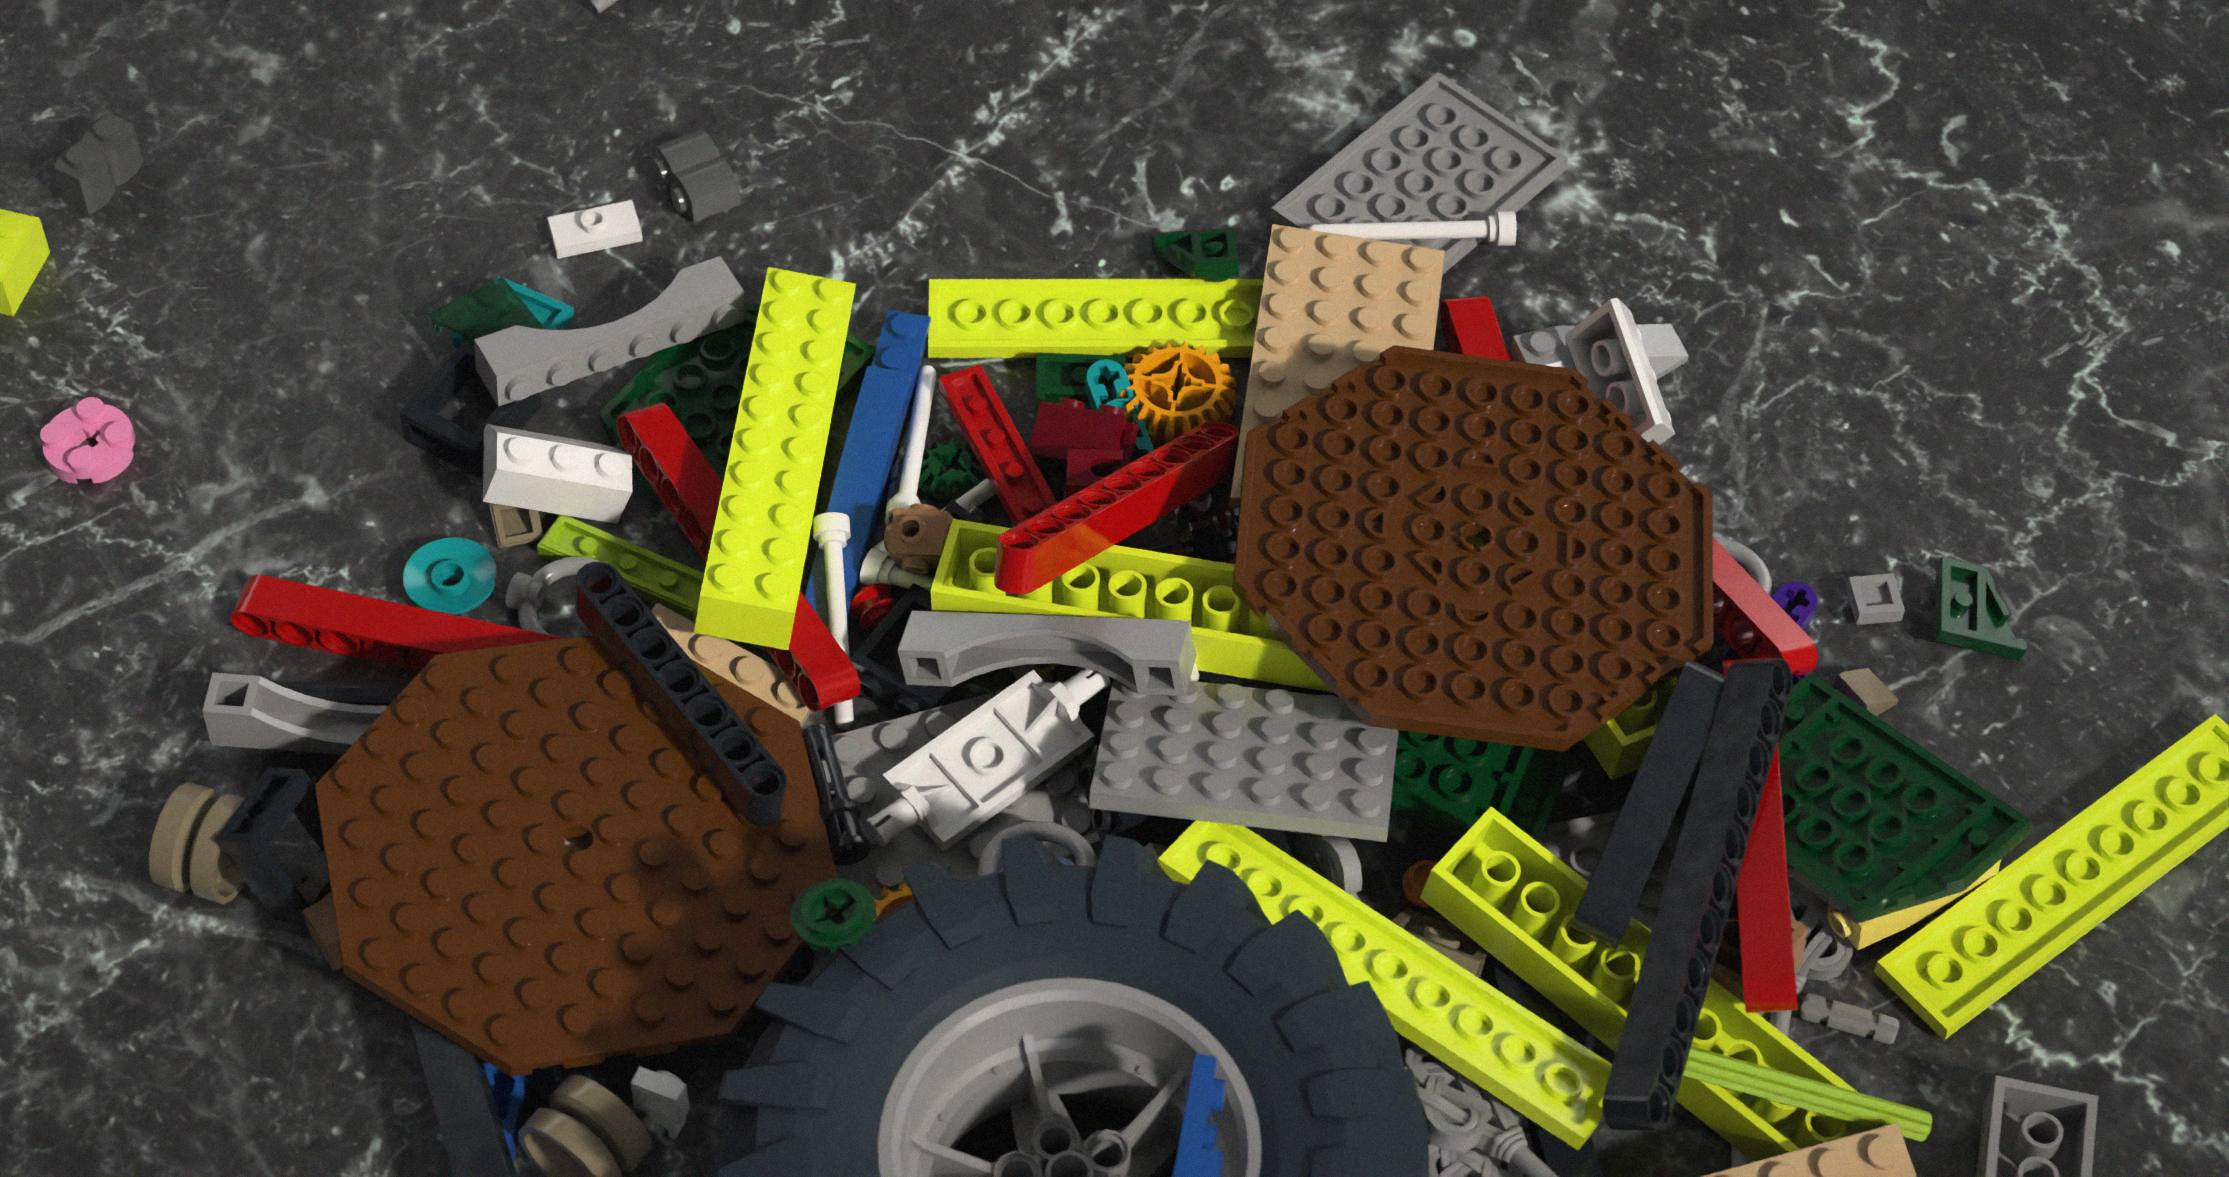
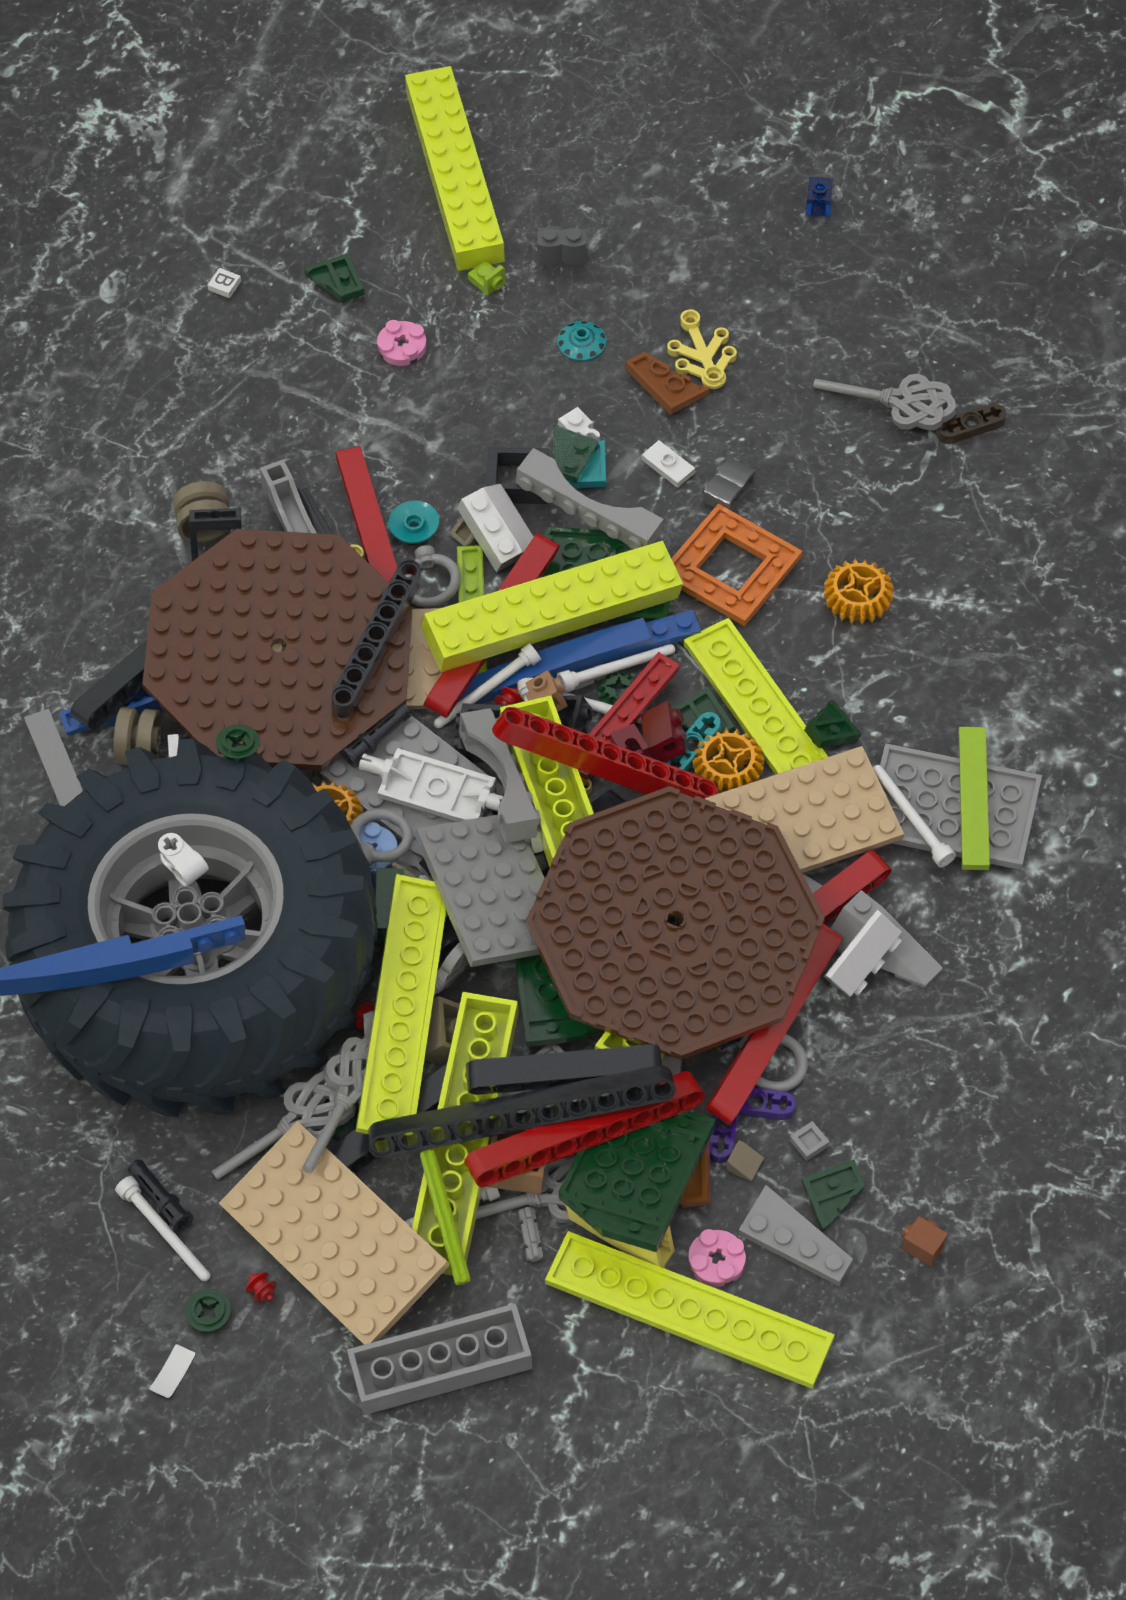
camera: 65 degrees right, 5 degrees up
(67, 281) = (487, 277): none -> lime bracket
(282, 228) = (585, 347): none -> teal dish
(432, 294) = (579, 423): none -> white plate
(458, 166) = (665, 386): none -> dark orange wing
(482, 107) = (690, 322): none -> light yellow plant
(866, 176) = (743, 604): none -> orange plate
(992, 120) = (854, 599): none -> light orange gear
(1012, 1104) = (181, 859): none -> white piece
(1432, 153) = (973, 798): none -> lime tile
(2016, 696) = (790, 1235): none -> light grey wing
(2024, 782) = (717, 1242): none -> bright pink plate
(2111, 542) = (924, 1240): none -> dark orange brick

